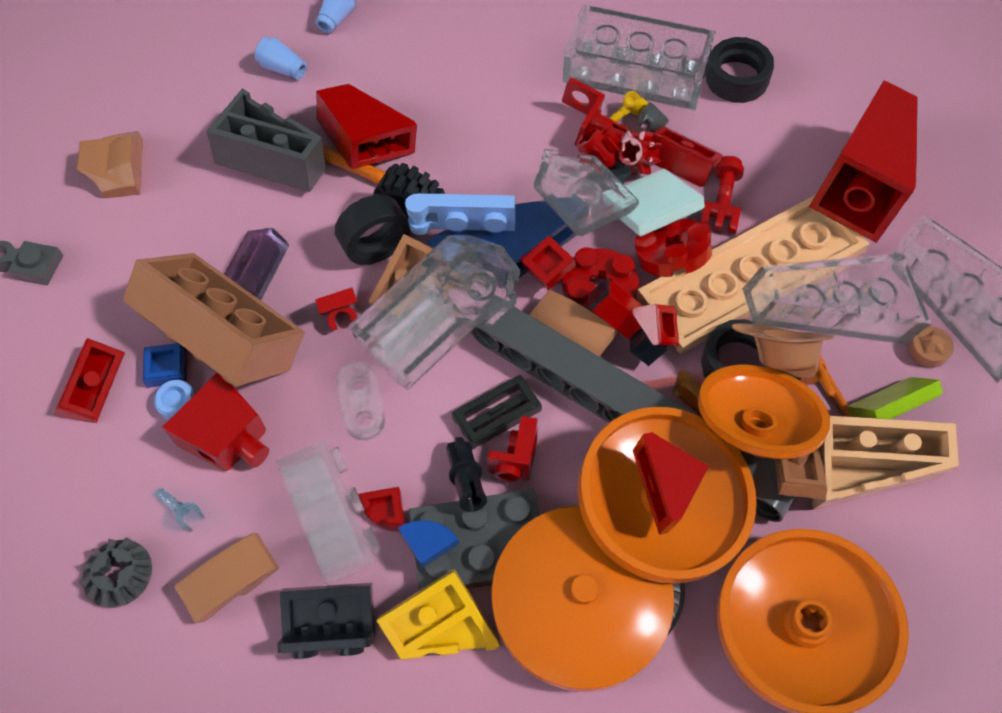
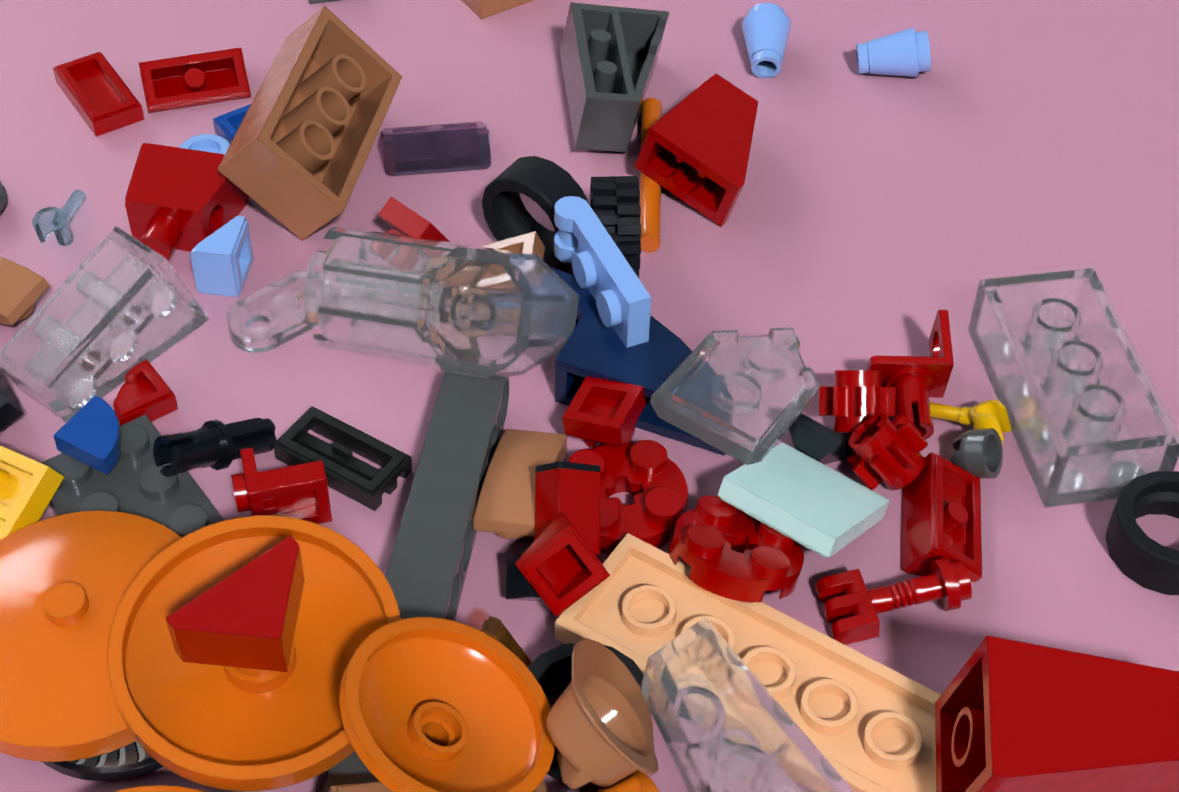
camera: 60 degrees right, 15 degrees down
(55, 448) = (98, 93): none -> red tile
(299, 416) = (223, 259): none -> light blue slope

